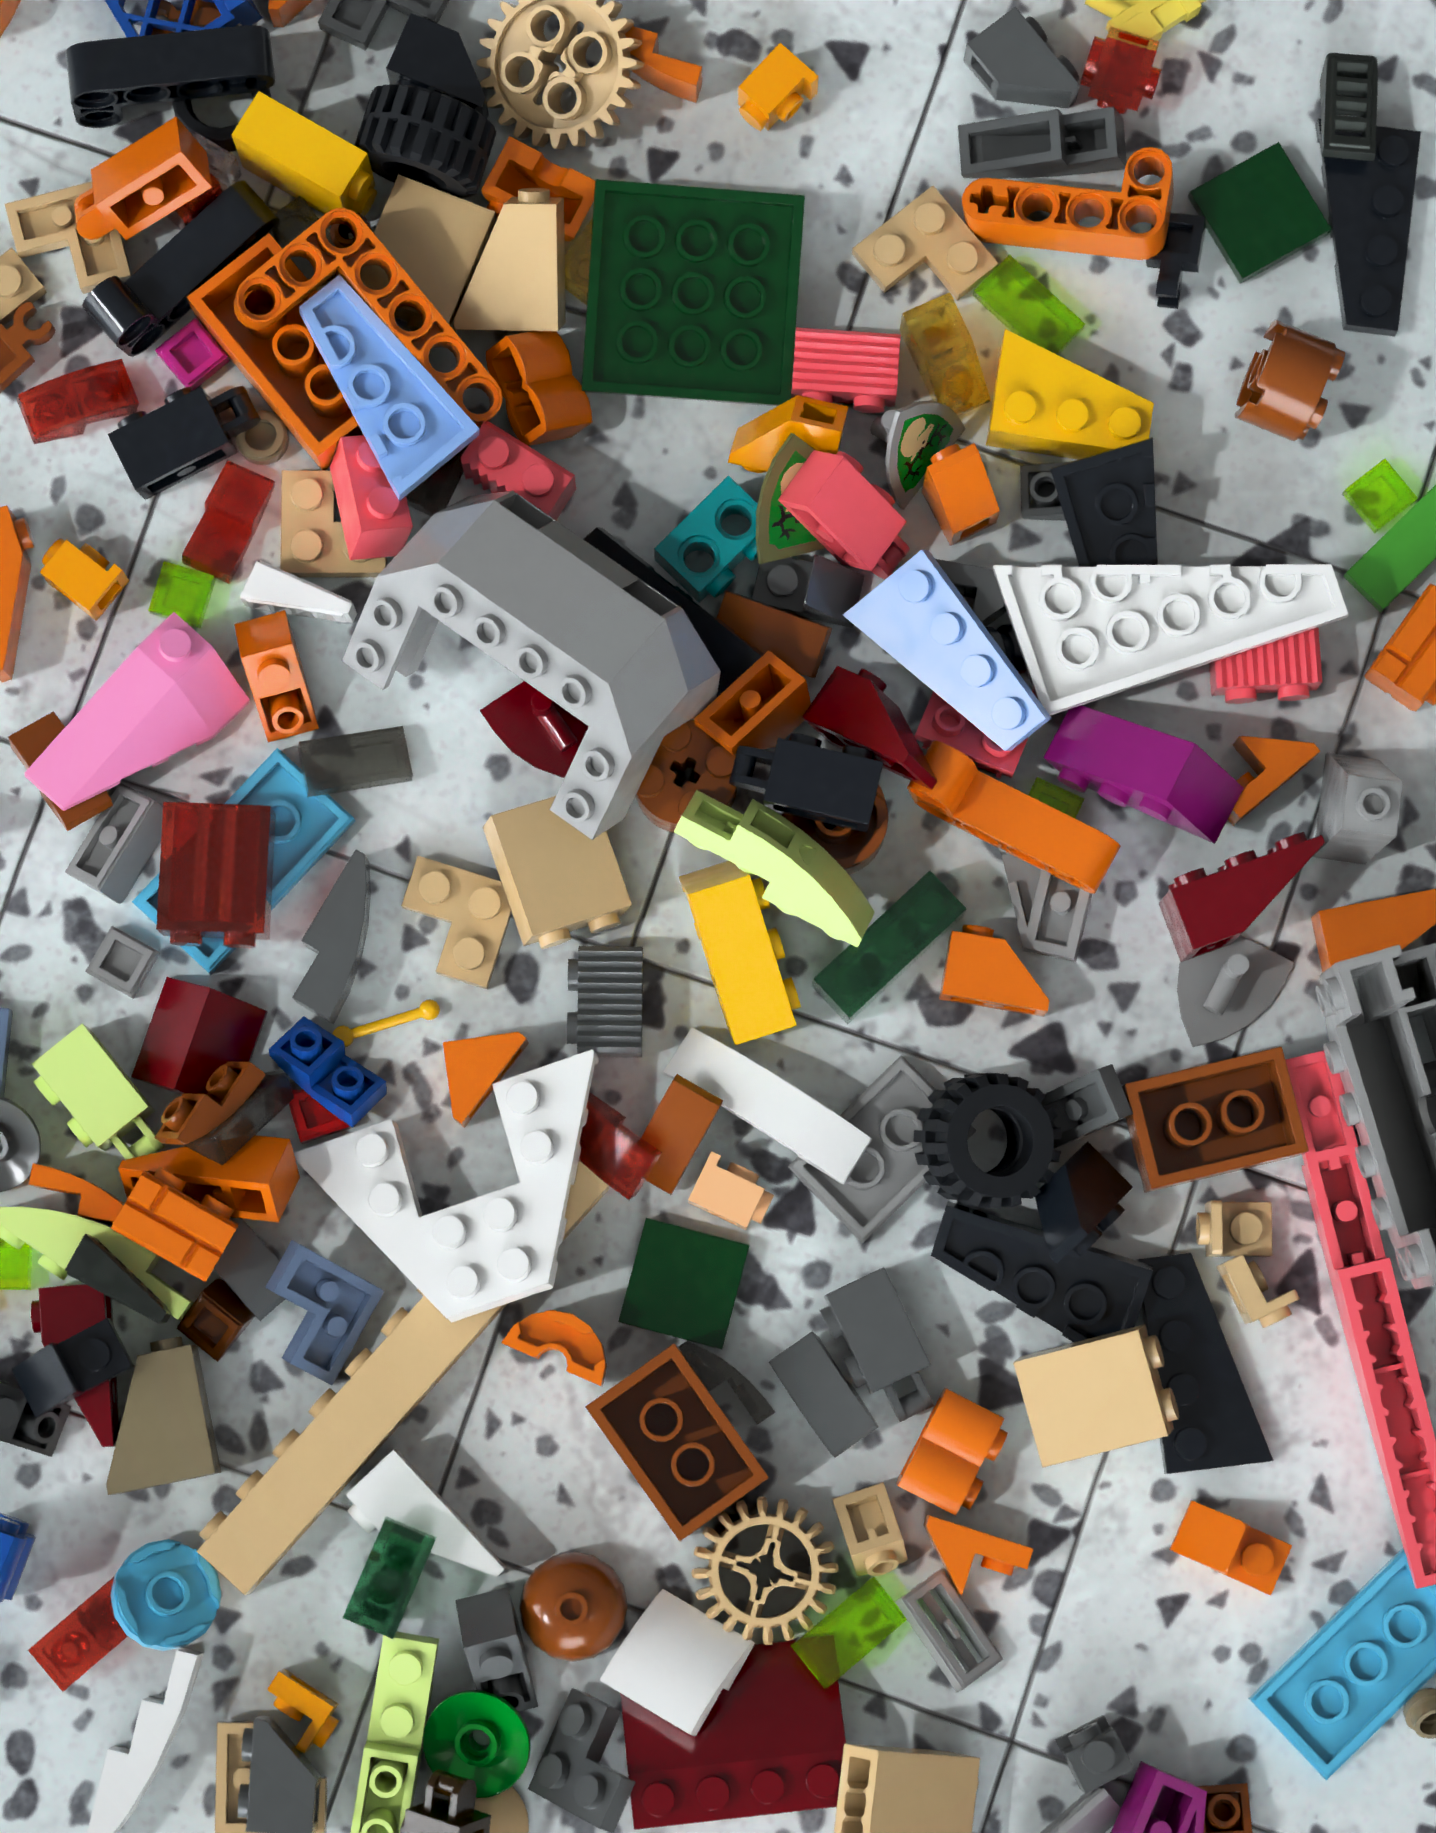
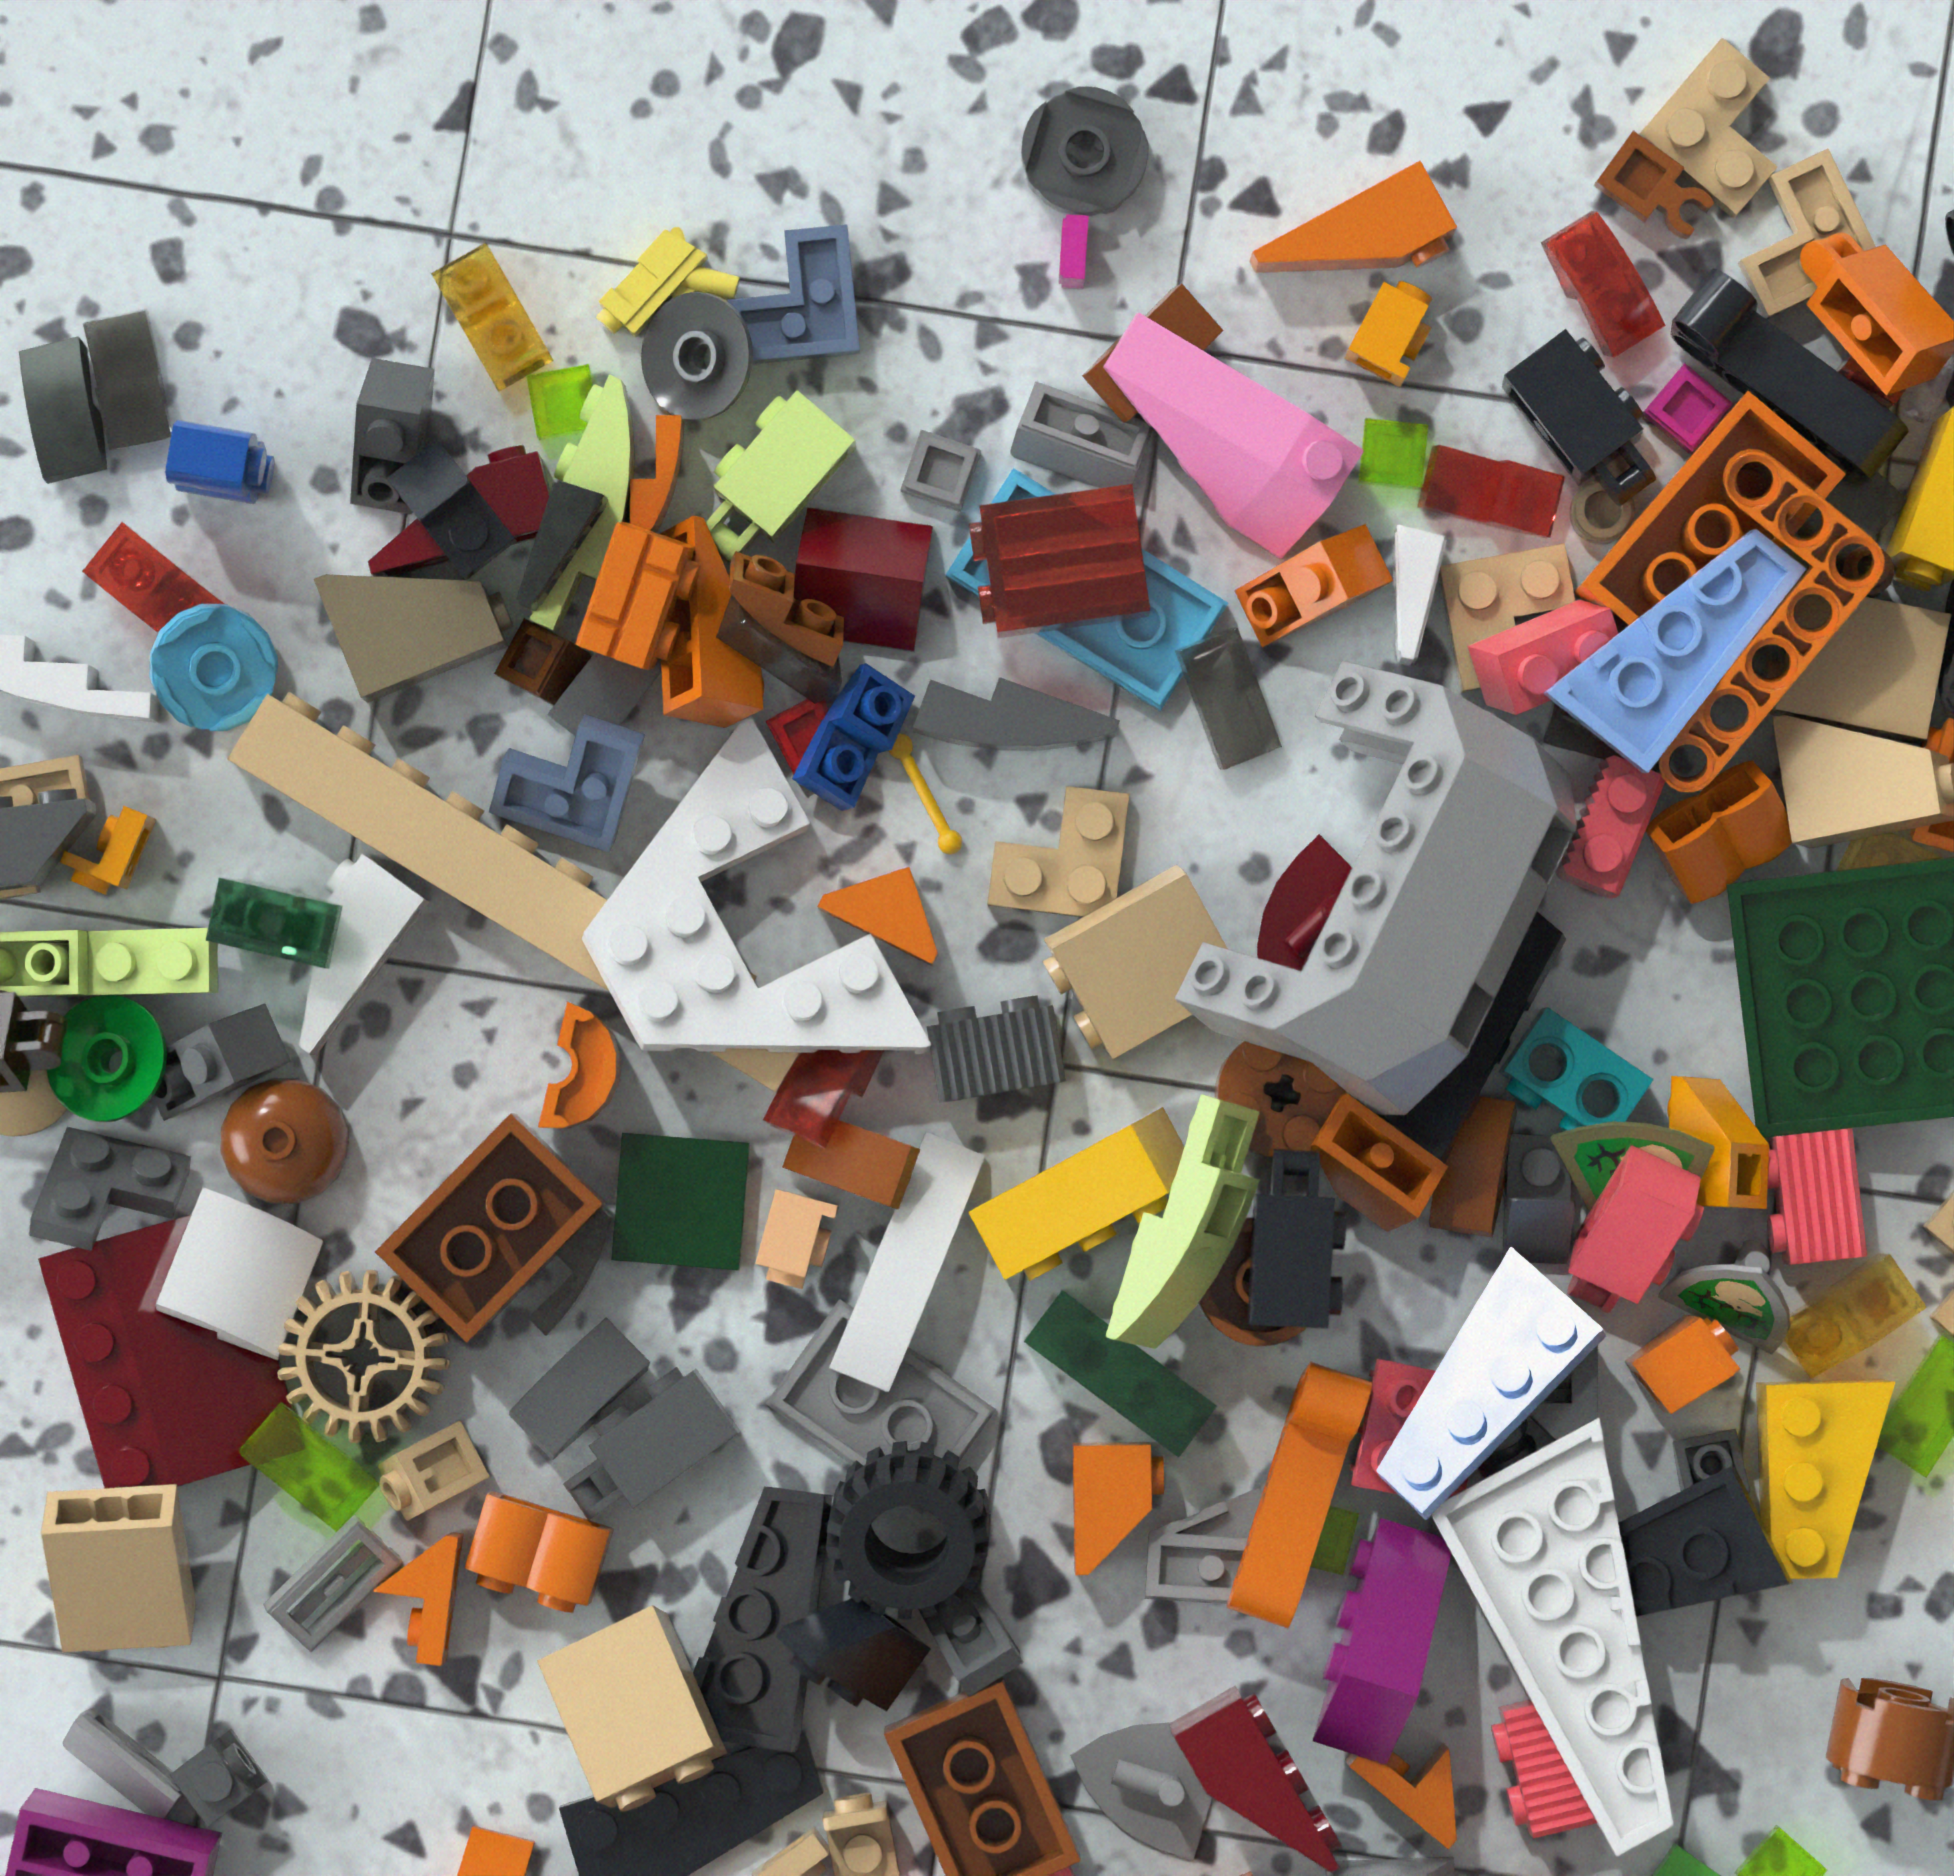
camera: 80 degrees right, 5 degrees up
(859, 714) = (1382, 1302): dark red slope -> none

